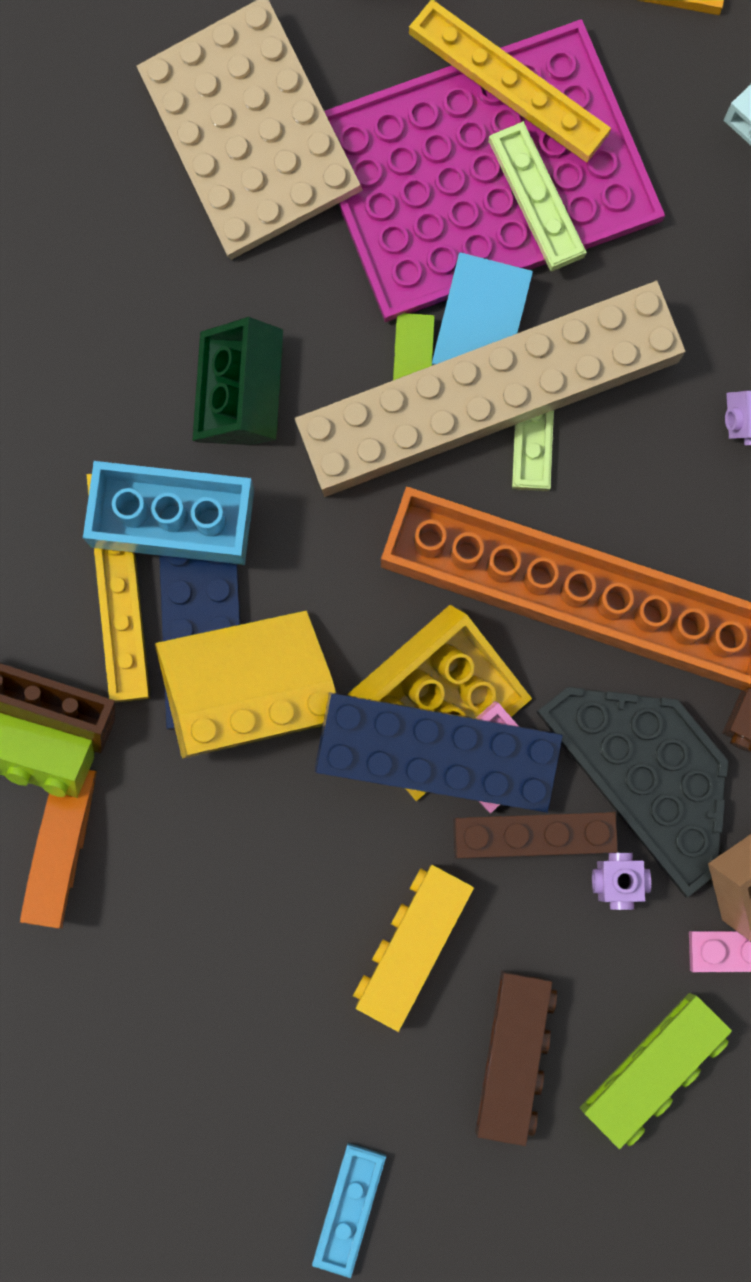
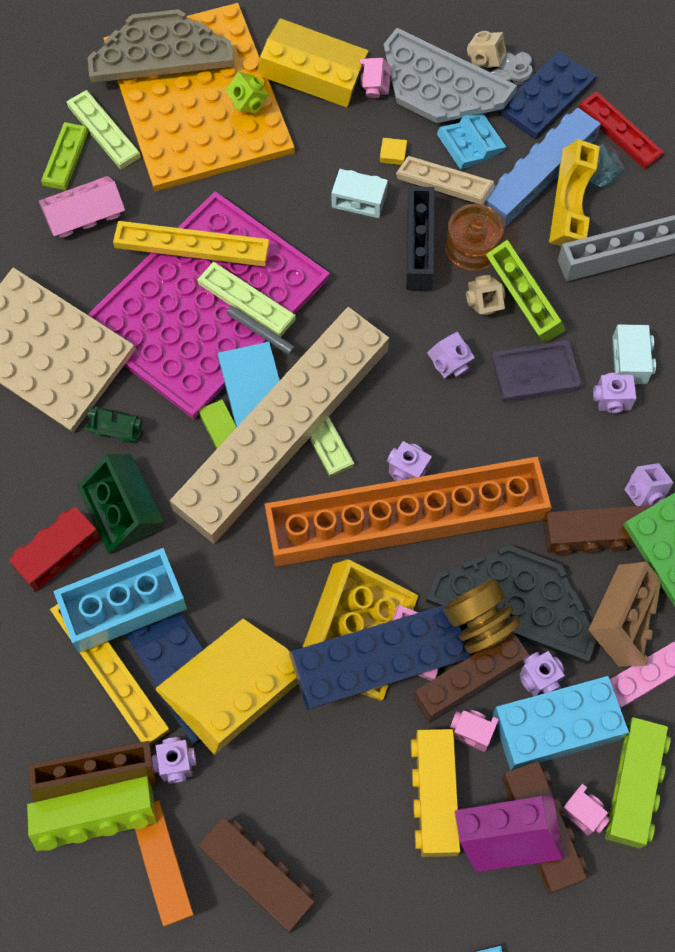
camera: 30 degrees left, 15 degrees down
(130, 400) = (54, 548): none -> red brick
(148, 741) = (181, 768): none -> lavender brick
(157, 920) = (257, 875): none -> reddish brown brick
(294, 290) = (126, 428): none -> dark green hinge
(469, 1045) = (510, 833): none -> magenta slope
(501, 897) = (473, 729): none -> bright pink brick
(531, 249) = (261, 330): none -> dark grey bar
(574, 1067) = (586, 812): none -> bright pink brick
(587, 776) = (482, 616): none -> pearl gold wheel
(607, 951) = (560, 723): none -> medium azure brick
(614, 541) = (408, 462): none -> lavender brick

